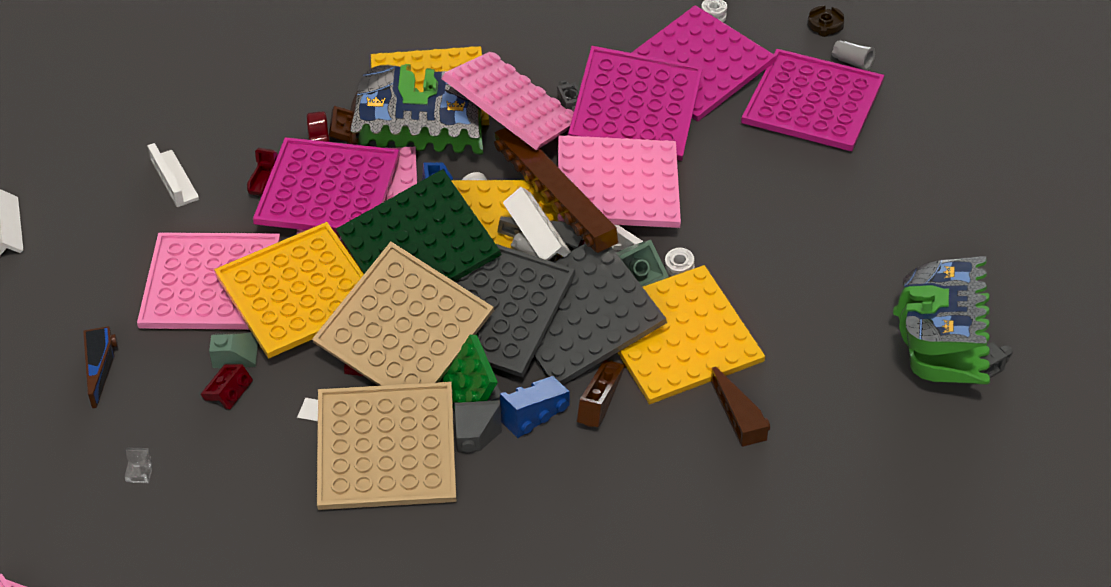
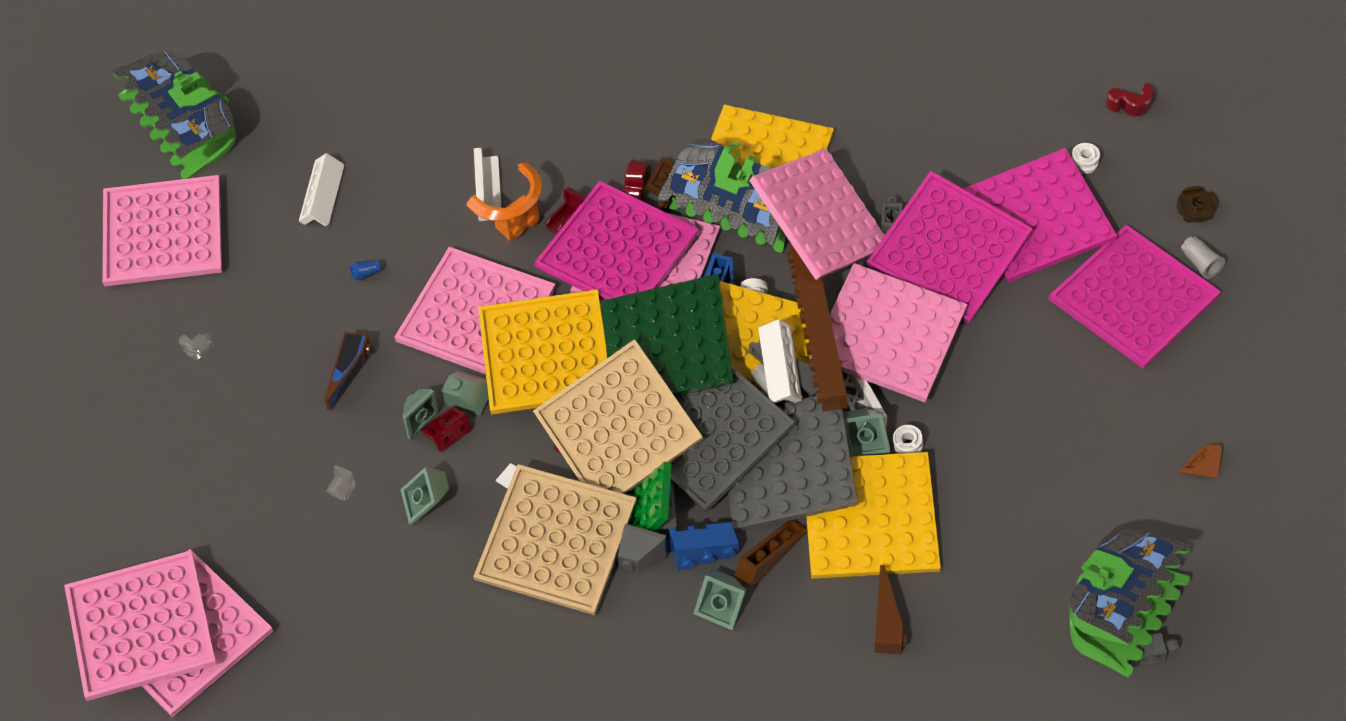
camera: 25 degrees right, 10 degrees up
(77, 276) = (363, 269): none -> blue cone
(193, 376) = (419, 411): none -> sand green slope
(214, 190) = (518, 215): none -> orange piece
(229, 447) = (423, 492): none -> sand green slope
(575, 446) = (720, 599): none -> sand green slope
(945, 204) = (1204, 462): none -> dark orange slope

